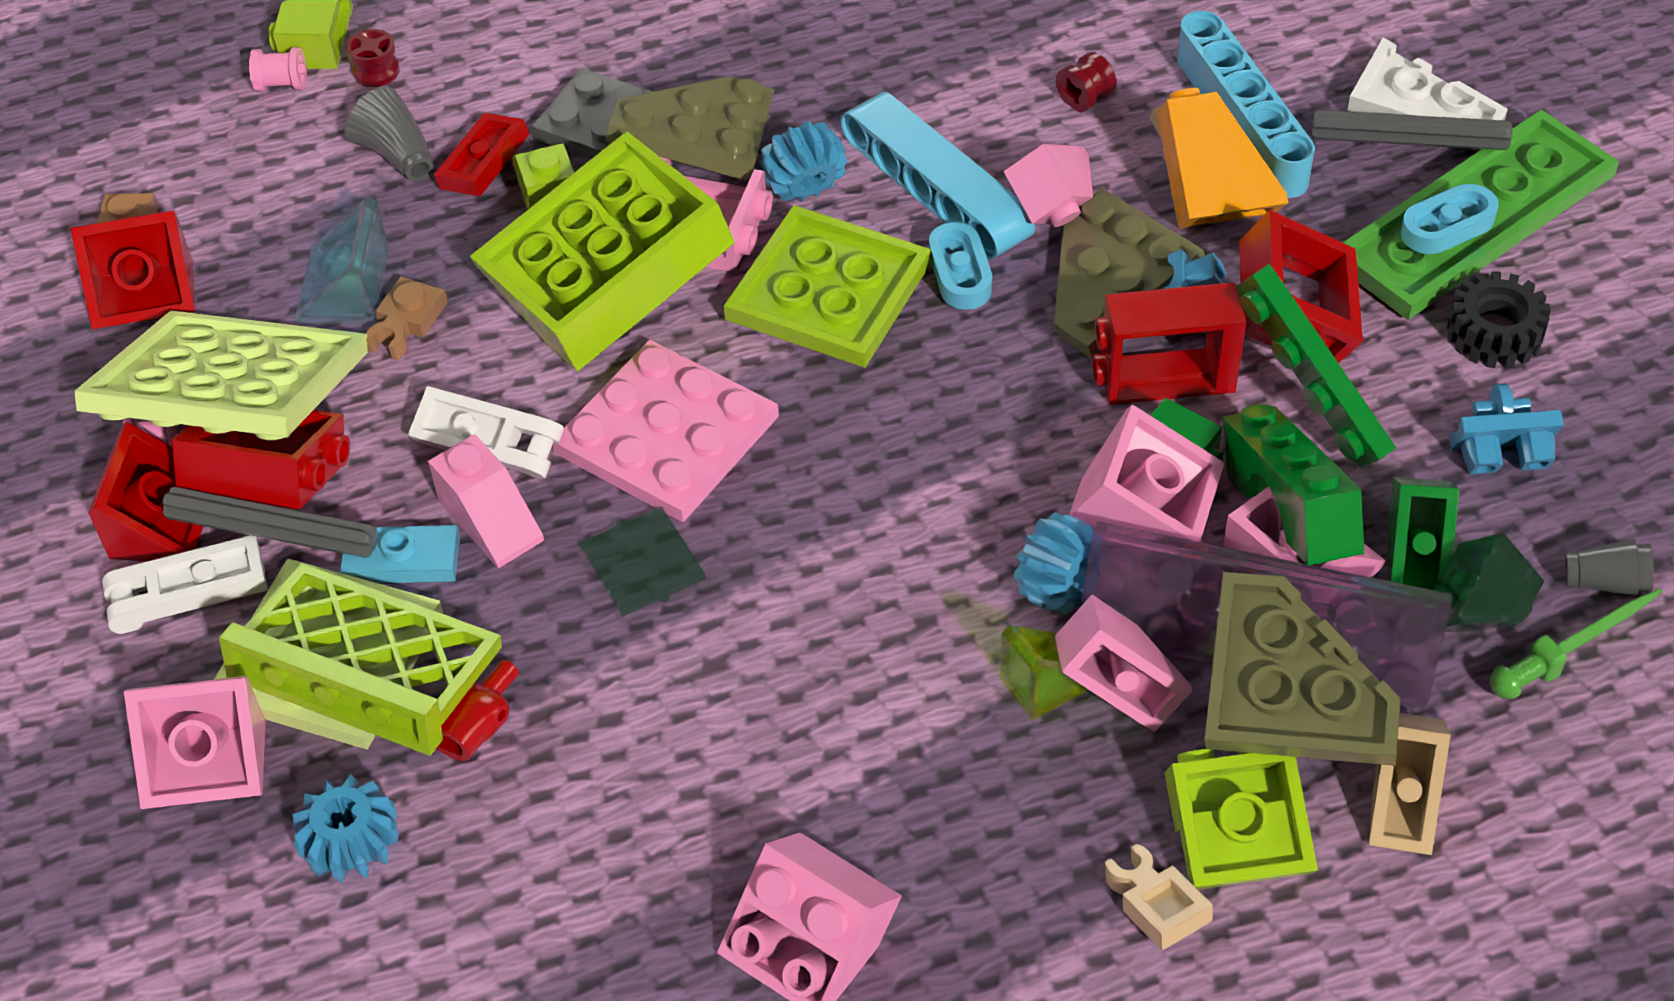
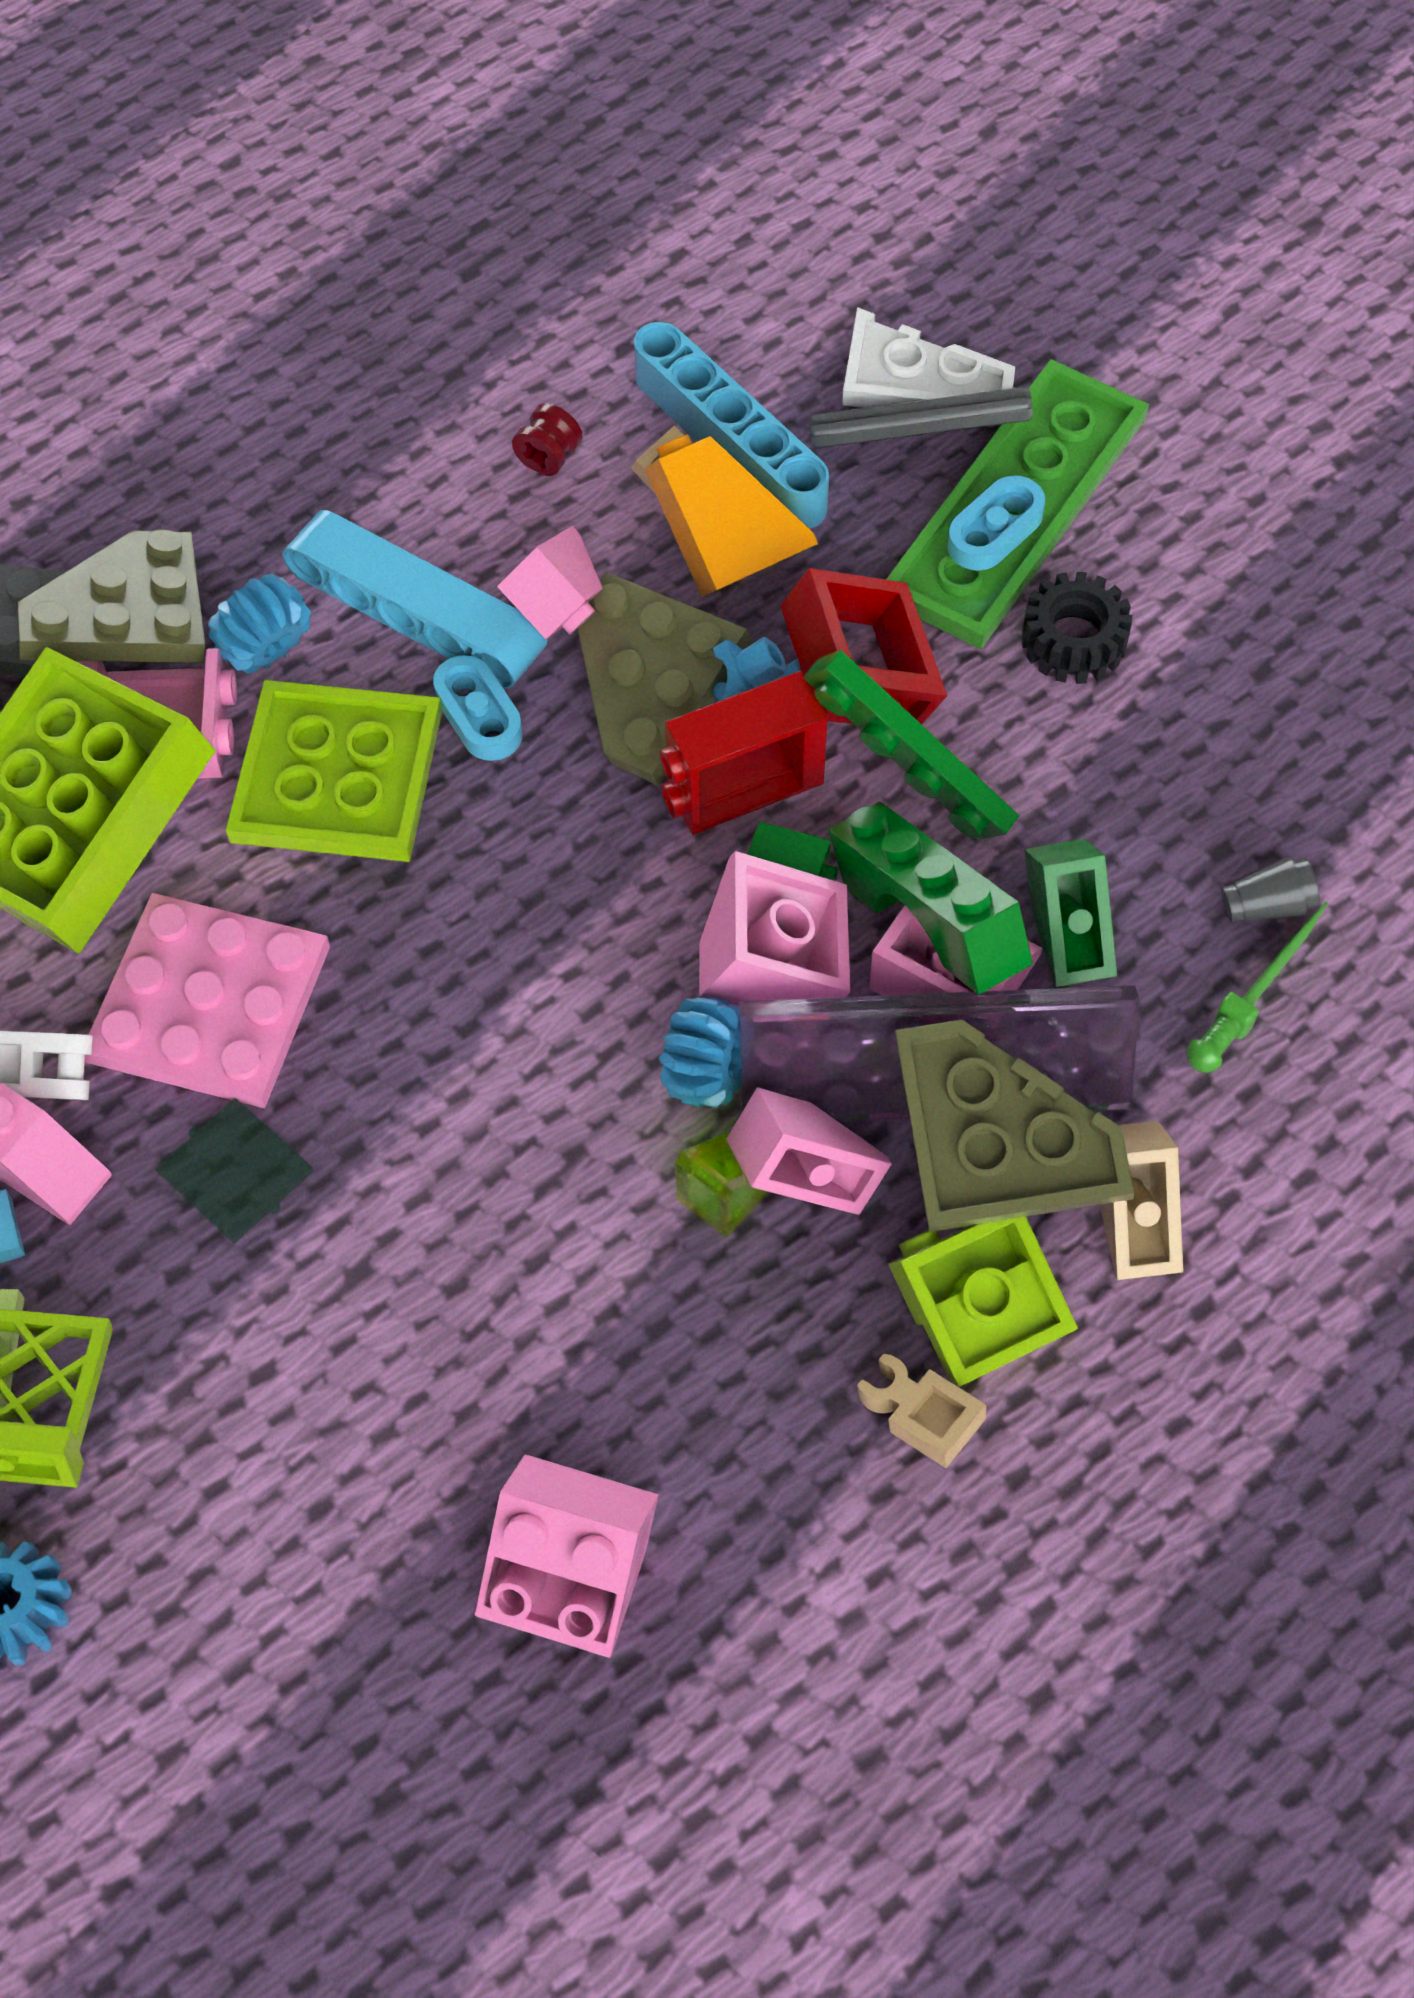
camera: 20 degrees left, 10 degrees up
(478, 714) = (114, 1414): red piece -> none
(1488, 585) = (1157, 951): clear green slope -> none
(1503, 424) = (1100, 775): dark azure hips -> none

